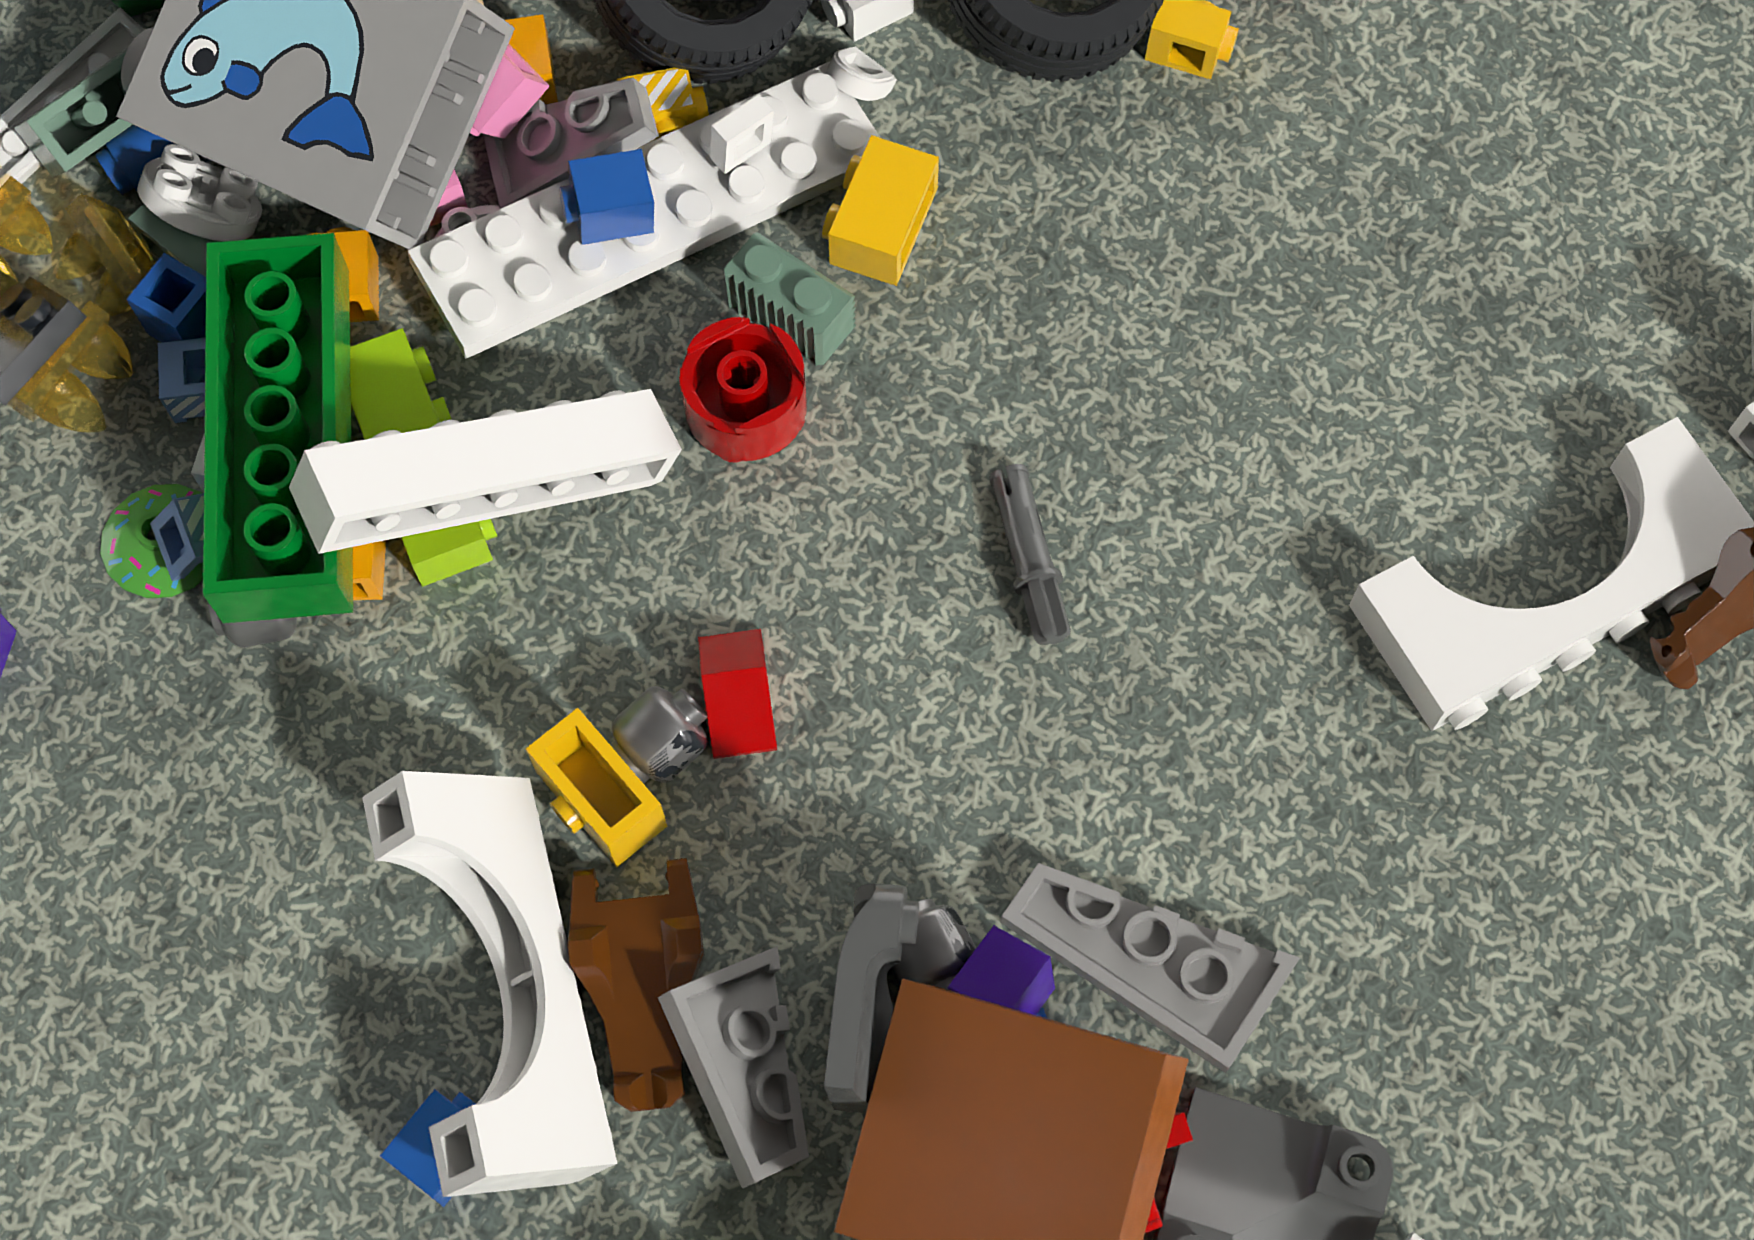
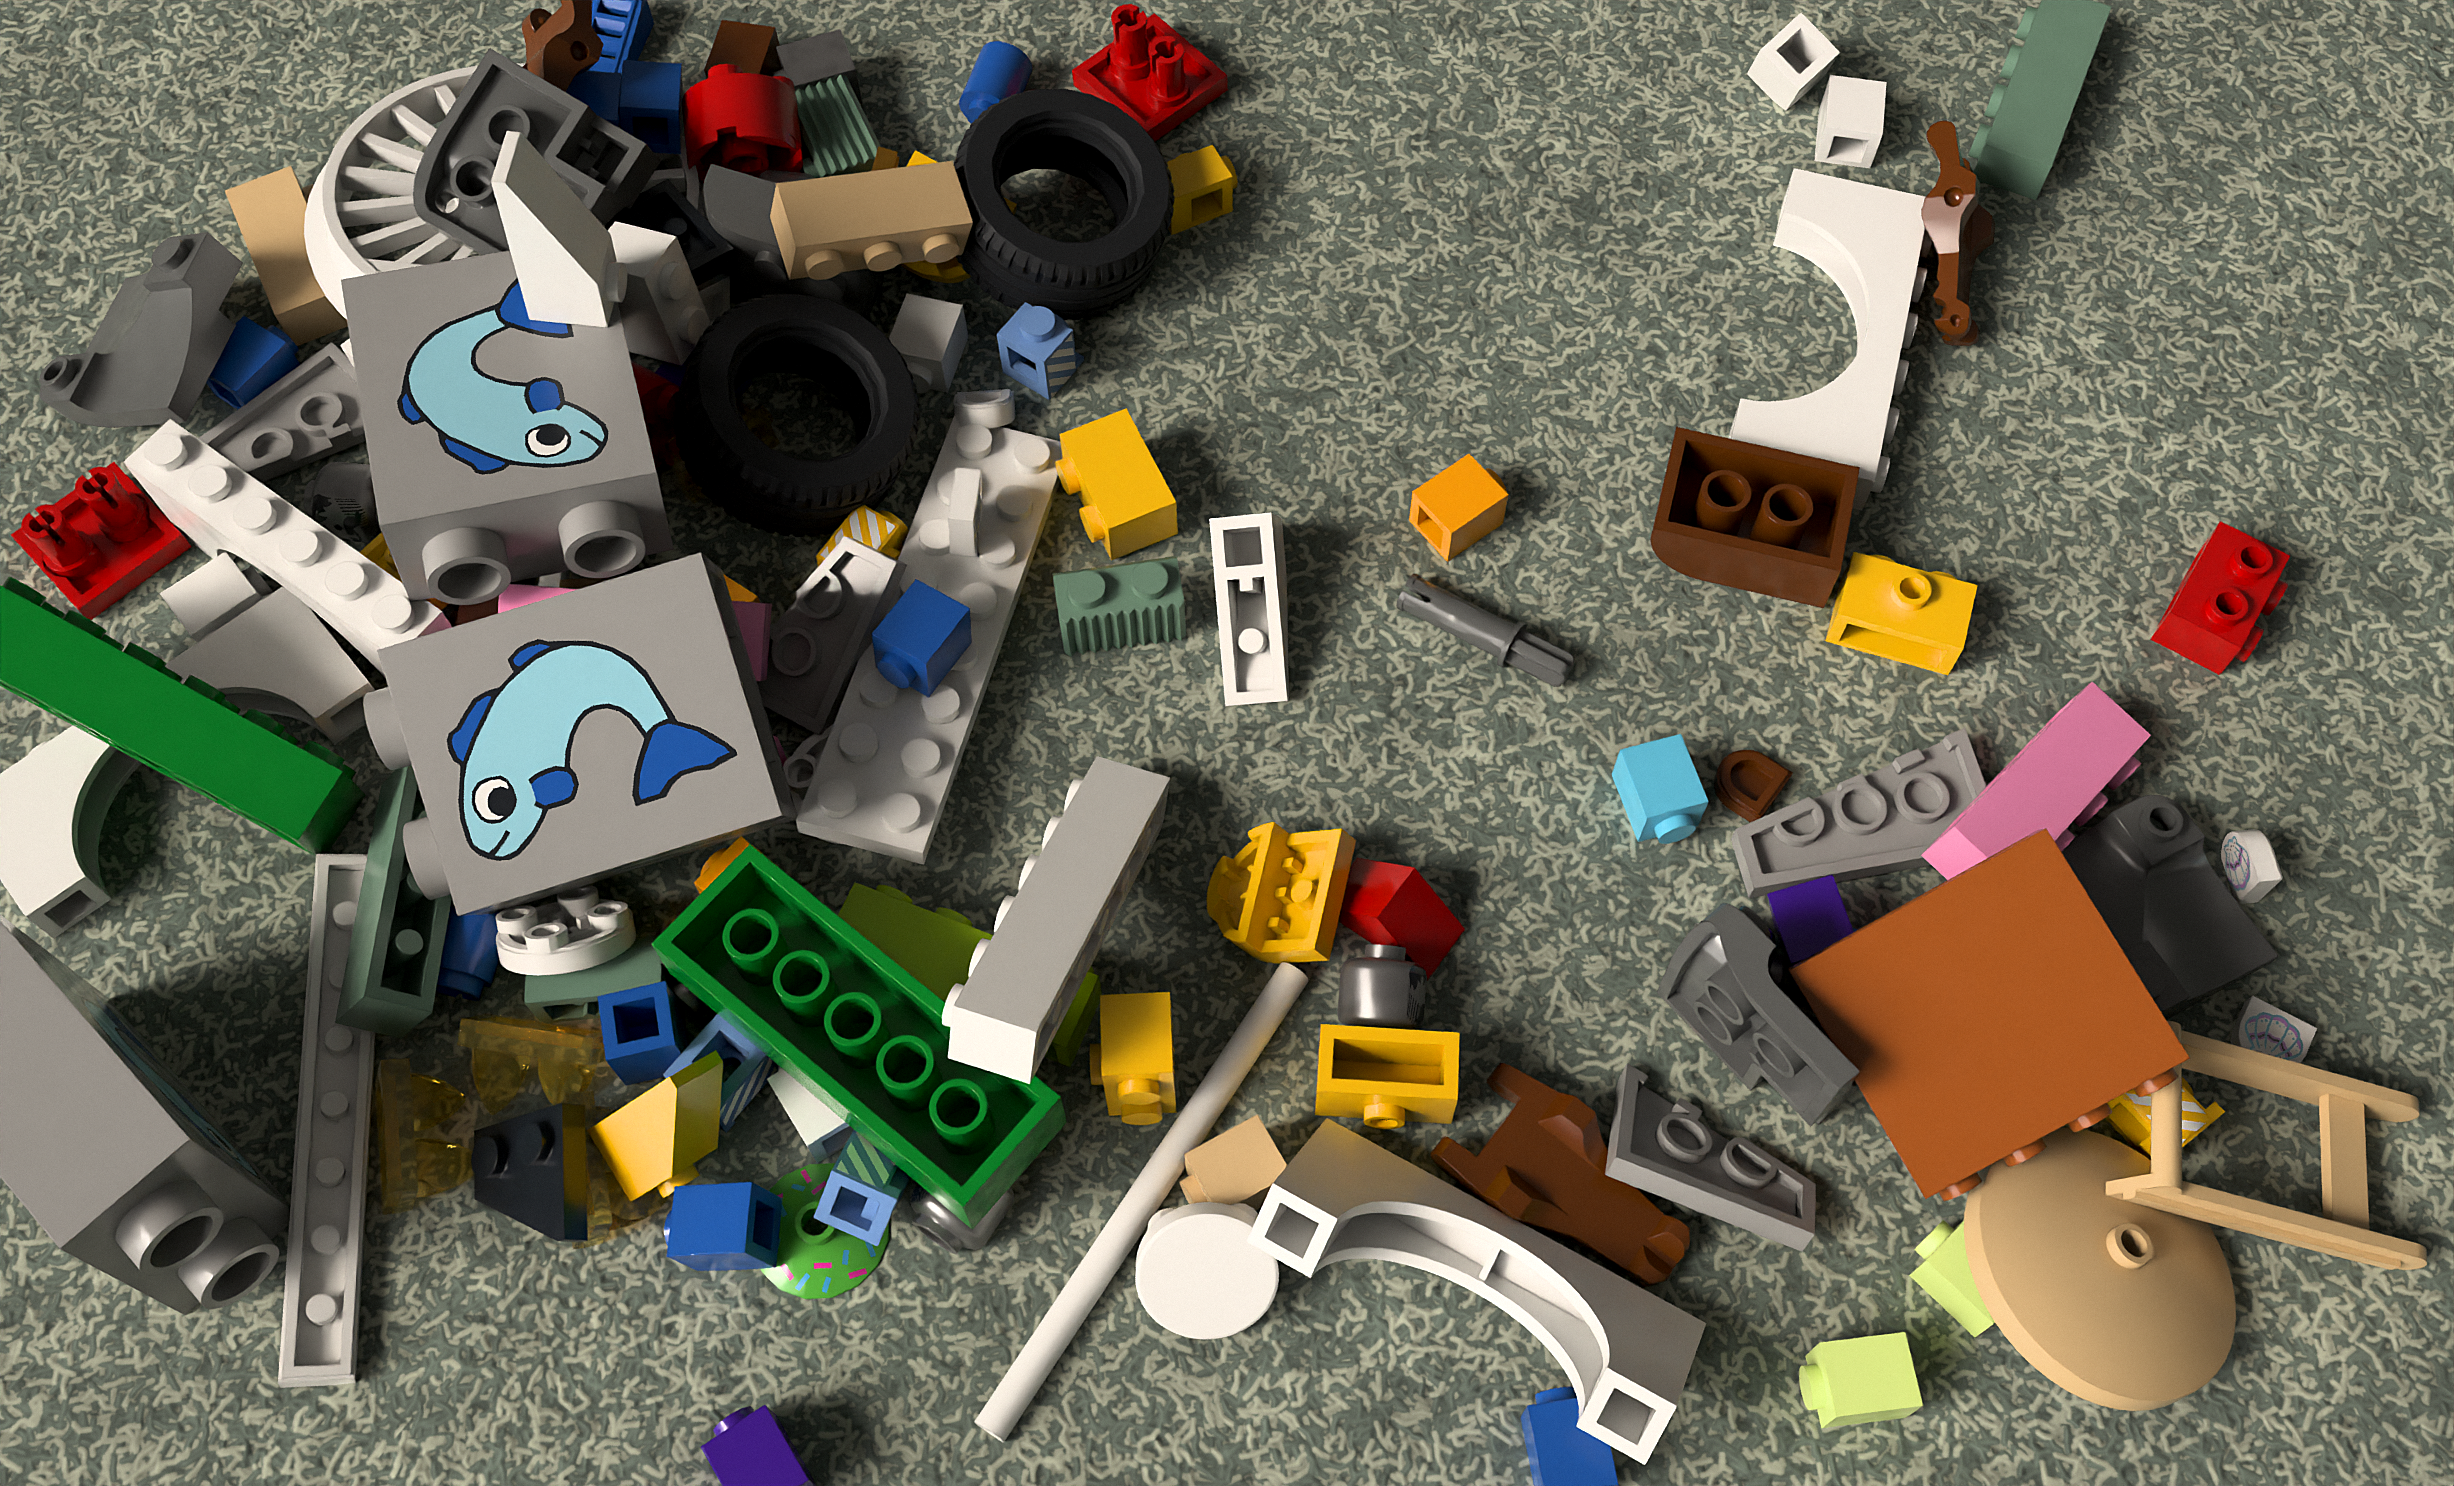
camera: 45 degrees left, 5 degrees down
(99, 478) = (724, 1227): none -> blue brick
(119, 380) = (664, 1130): none -> yellow slope
(326, 790) = (1202, 1273): none -> white tile
(372, 716) = (1140, 1204): none -> white piece
(434, 746) = (1233, 1166): none -> tan brick
(447, 615) = (1136, 1056): none -> yellow brick
(674, 602) = (1282, 893): none -> yellow slope
(773, 399) = (1164, 695): red brick -> none
(882, 381) = (1251, 607): none -> white slope
(940, 63) = (1043, 339): none -> medium blue brick
(1017, 783) = (1660, 789): none -> medium azure brick
(1098, 844) = (1749, 783): none -> reddish brown tile
(1114, 446) = (1459, 506): none -> light orange brick
(1294, 1057) = (2046, 783): none -> bright pink brick
(1318, 651) = (1754, 517): none -> reddish brown brick
(1357, 829) = (1902, 612): none -> yellow brick
(1633, 1062) = (2222, 598): none -> red brick

